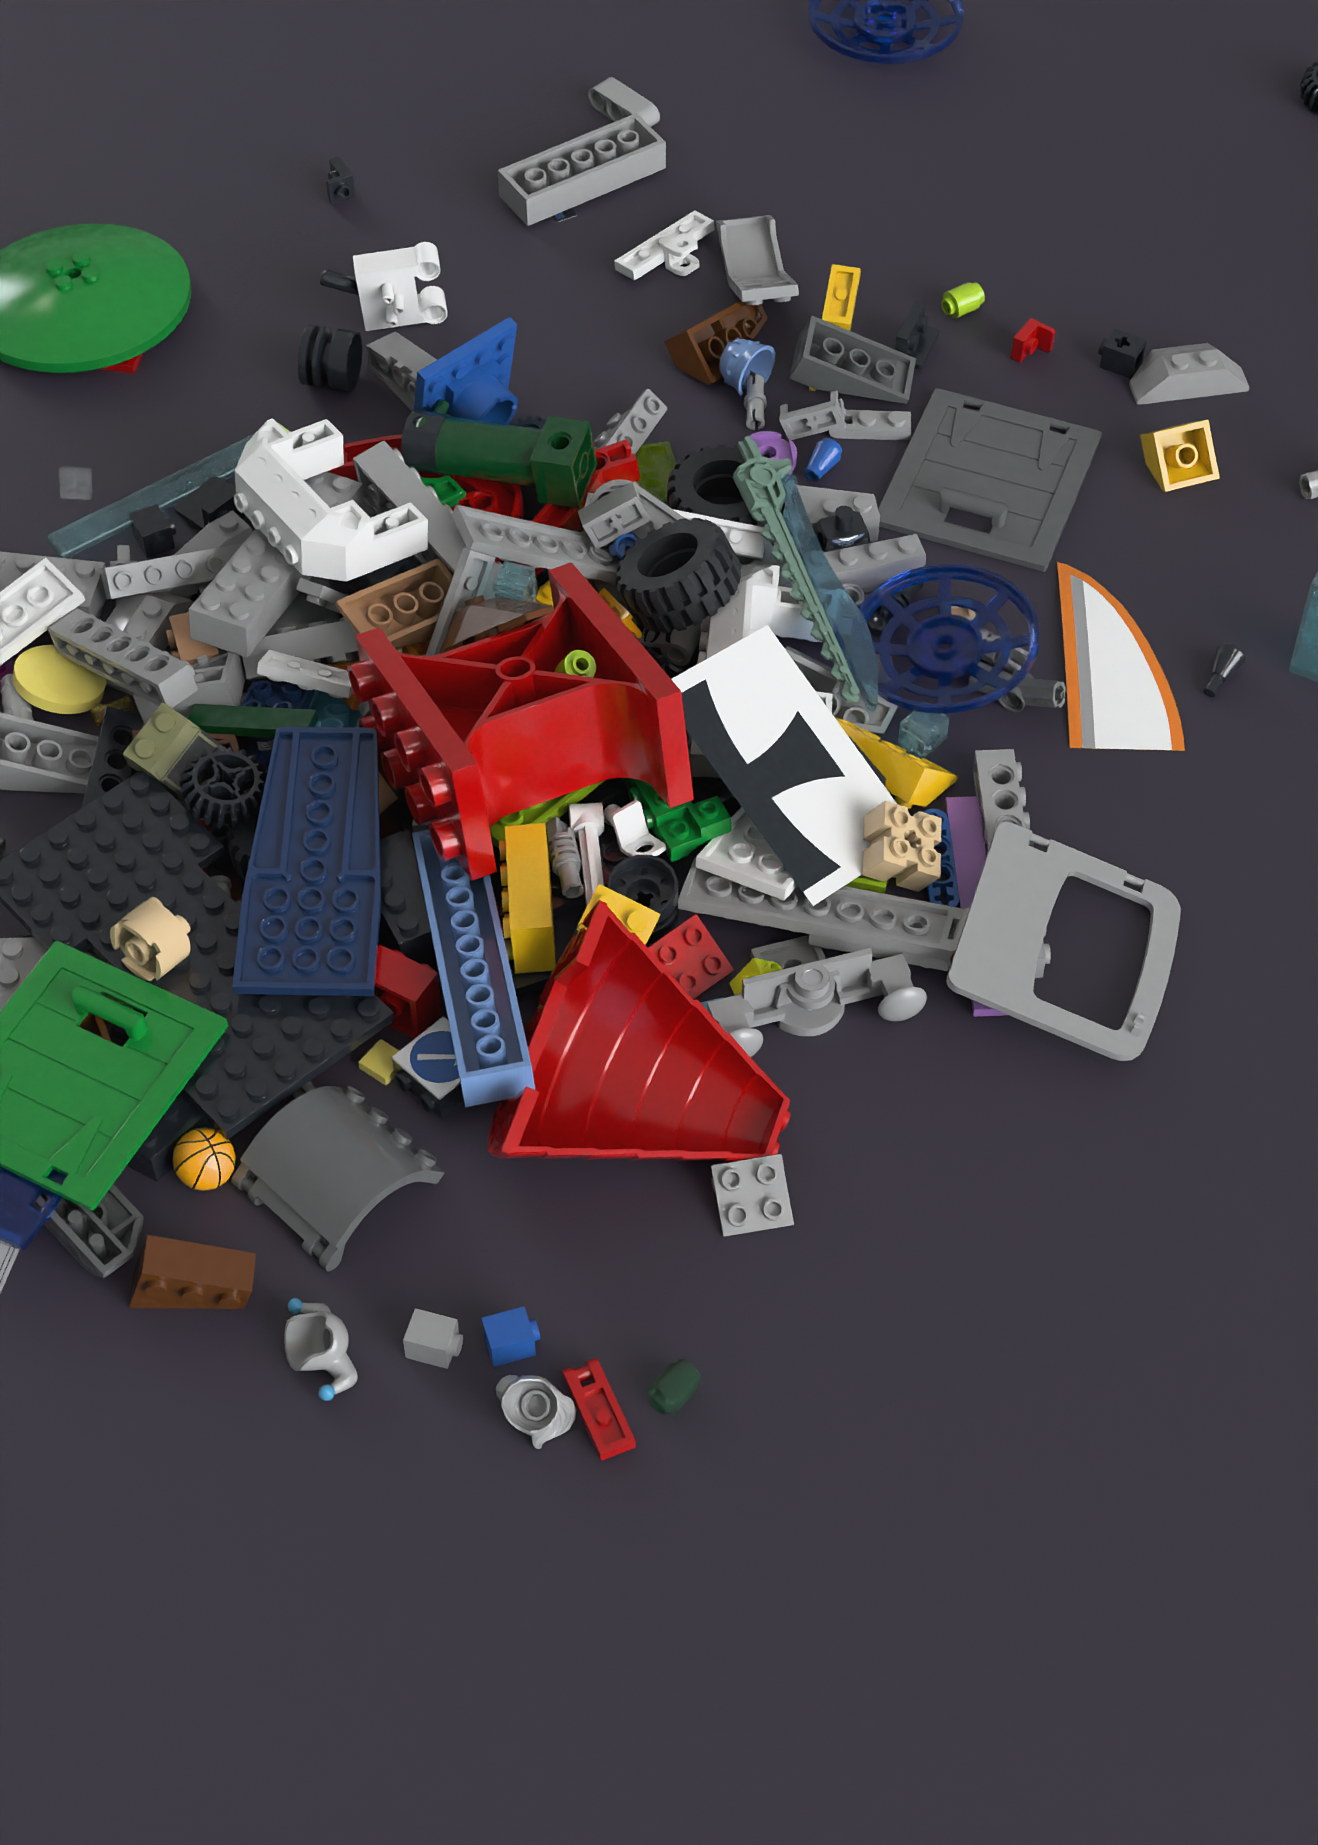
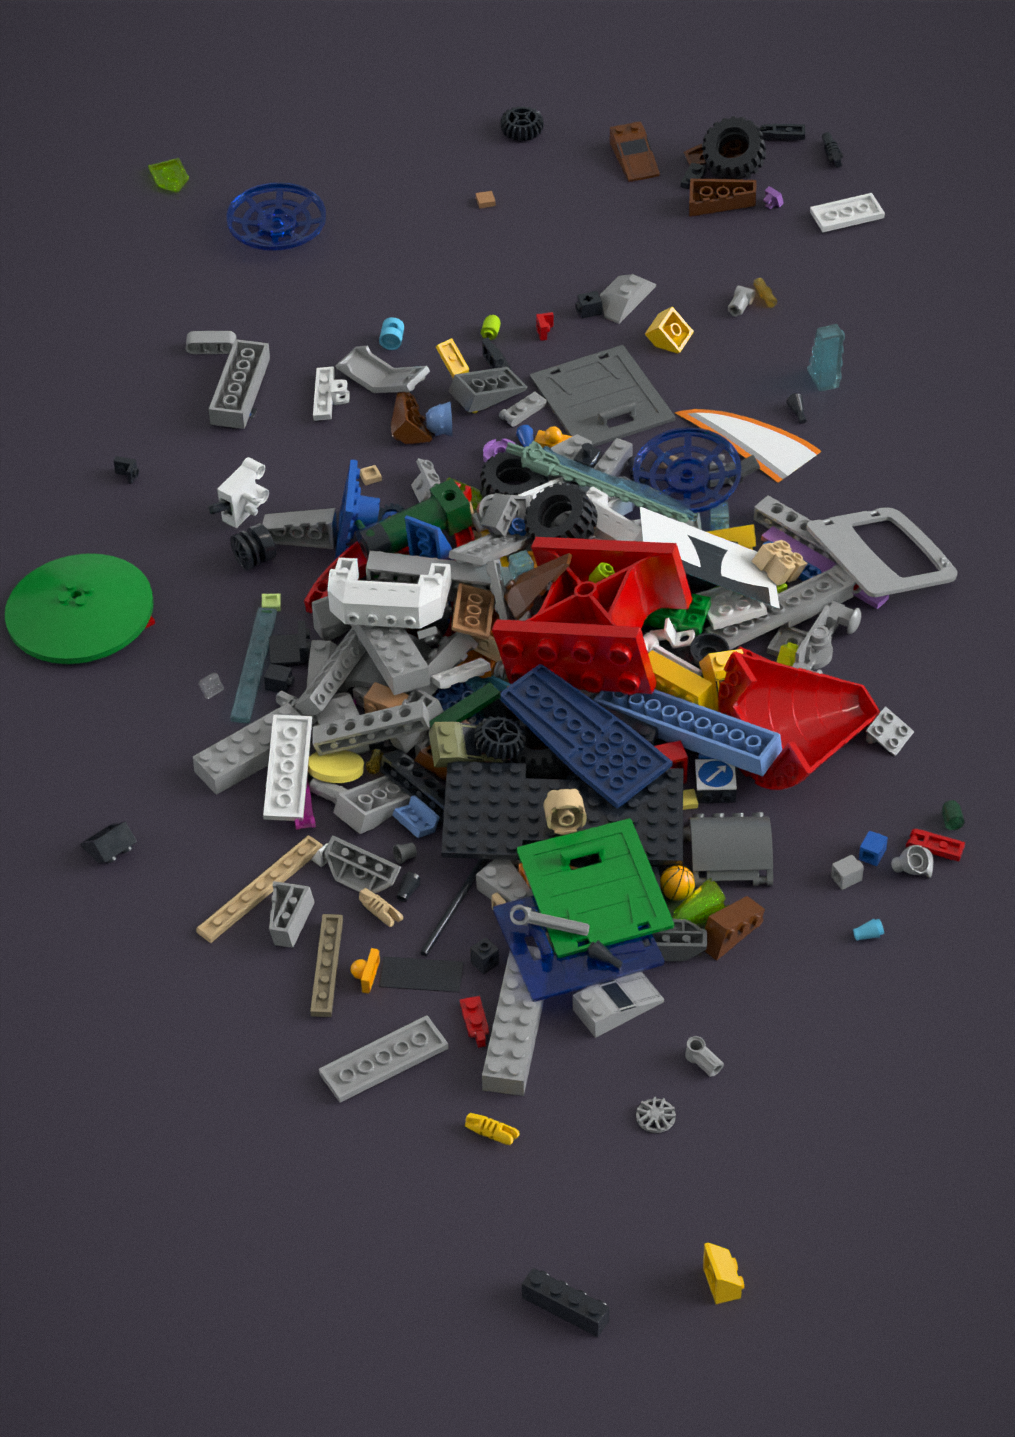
camera: 45 degrees left, 5 degrees down
(49, 808) = (417, 817): none -> medium blue bracket
(194, 1214) = (701, 903): none -> clear neon green cone
(319, 1343) = (810, 907): light grey piece -> none
(352, 1447) = (869, 930): none -> medium azure cone
(466, 477) = (426, 540): none -> blue slope
(588, 375) = (370, 475): none -> tan tile
(755, 402) = (464, 435): light grey pin -> none
(813, 418) = (500, 422): light grey hinge -> none
(833, 228) = (391, 333): none -> medium azure wheel
(852, 478) = (550, 437): none -> light orange tile
(1171, 150) = (485, 199): none -> medium nougat tile

